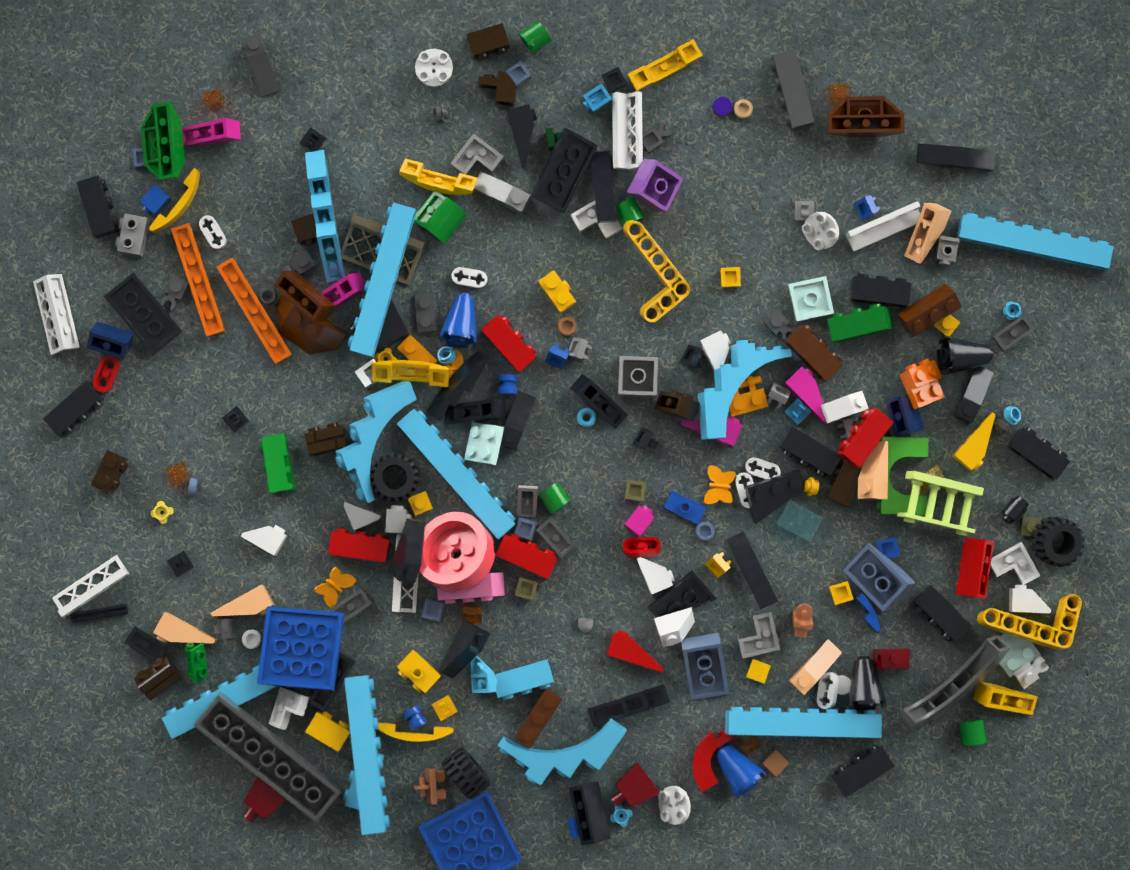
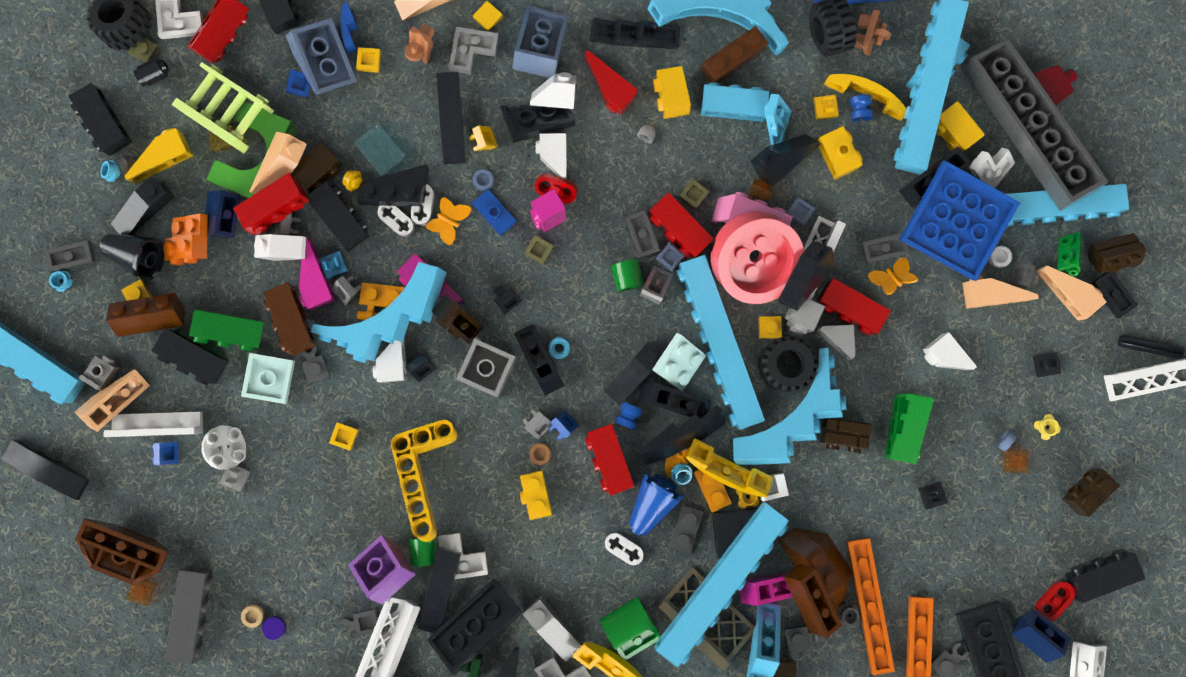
camera: 165 degrees left, 0 degrees up
(577, 666) = (672, 91): none -> yellow brick

